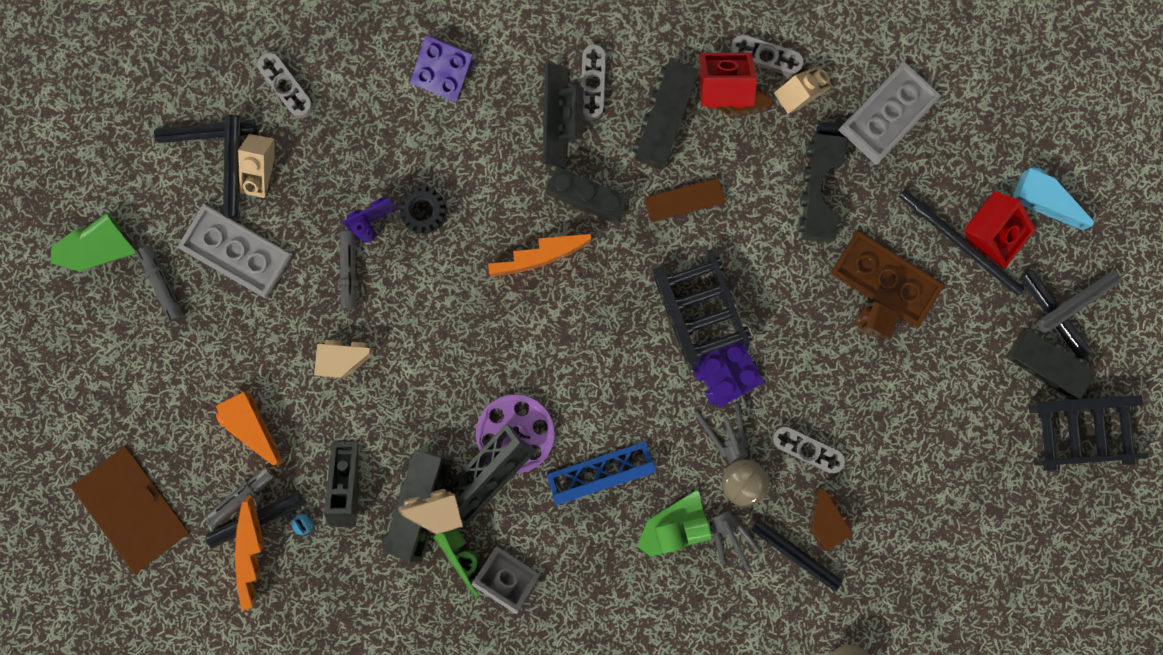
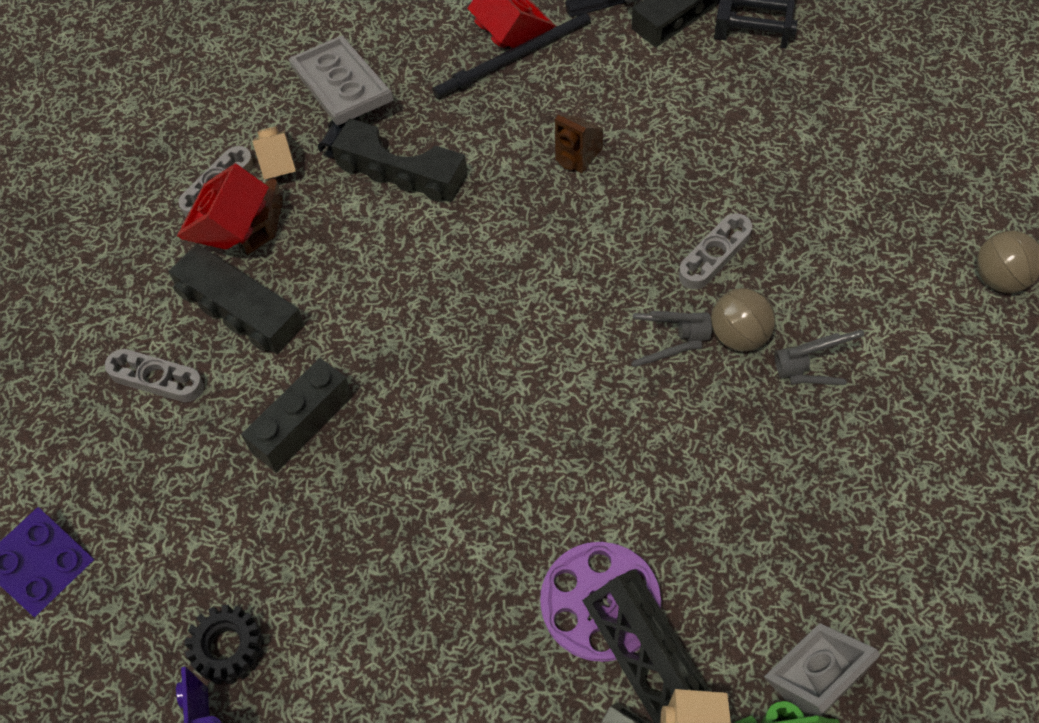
camera: 70 degrees left, 25 degrees down
(549, 251) = (353, 487): orange slope -> none
(561, 114) = (179, 417): pearl dark grey bracket -> none
(605, 482) = (703, 498): blue fence -> none
(676, 527) = (786, 423): bright green panel -> none
(684, 200) = (353, 310): reddish brown tile -> none
(685, 328) = (504, 344): black fence -> none
(727, 374) = (592, 314): dark purple plate -> none
(797, 555) = (848, 294): black axle -> none
(826, 522) = (811, 248): reddish brown slope -> none
(887, 279) = (525, 130): reddish brown tile -> none

